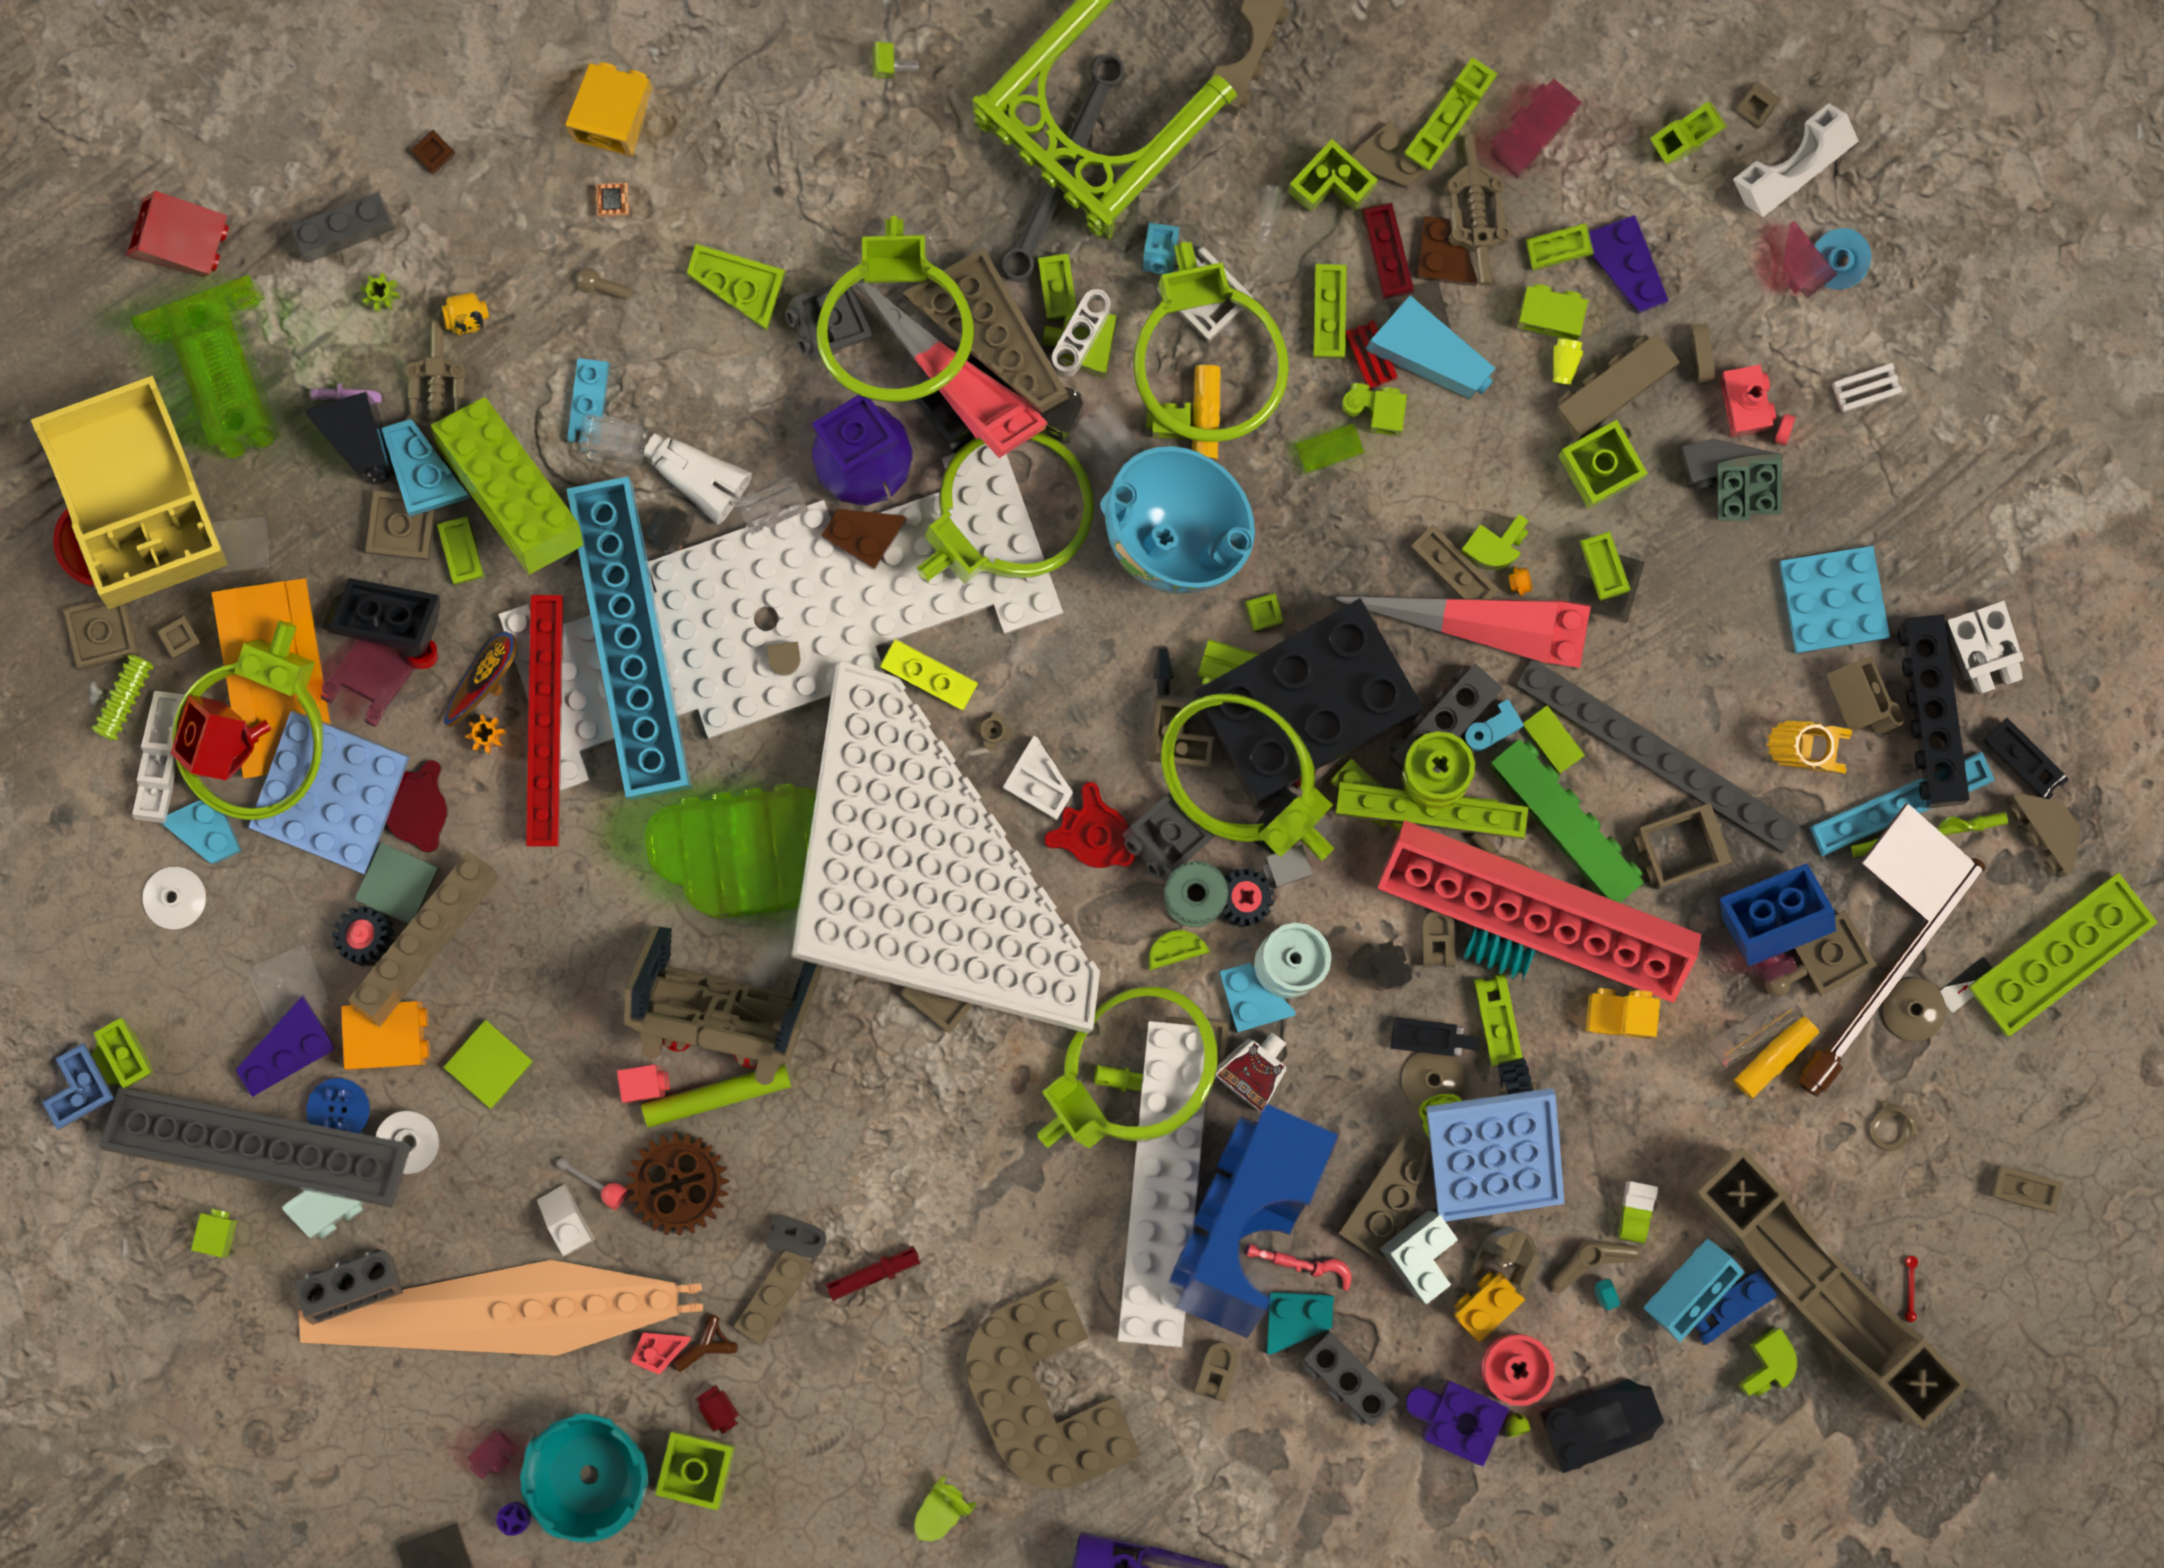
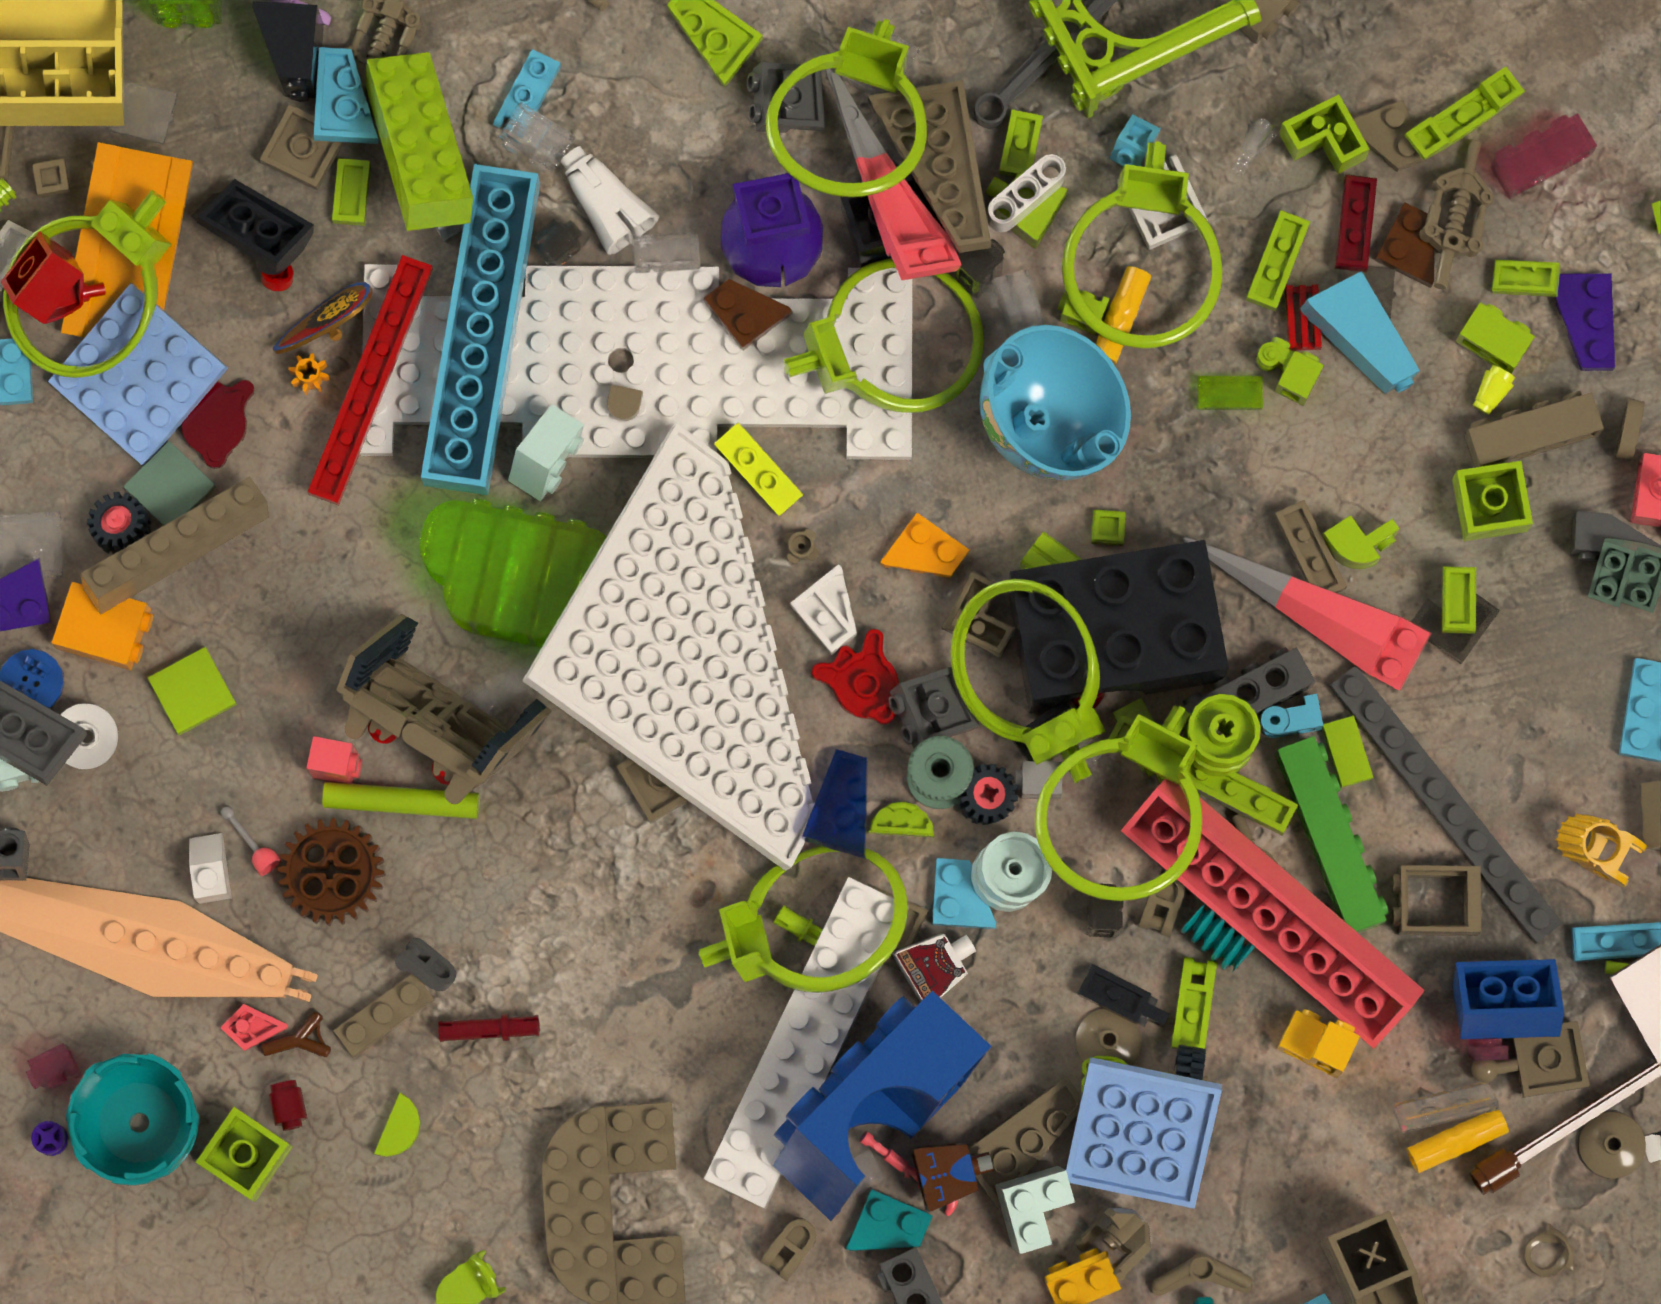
camera: 20 degrees right, 5 degrees down
(373, 673) = (222, 276): clear pink flag -> none
(727, 735) = (543, 451): none -> light aqua brick
(827, 1393) = (401, 1128): none -> lime tile
(1107, 693) = (925, 550): none -> light orange wing
(1117, 957) = (841, 806): none -> clear blue wing
(1163, 671) = (988, 548): black bar -> none
(1334, 1254) = (947, 1172): none -> reddish brown torso
(1385, 806) = (1156, 749): none -> lime brick
(1520, 581) = (1371, 586): light orange plate -> none
(1636, 1211) = (1263, 1242): leg -> none

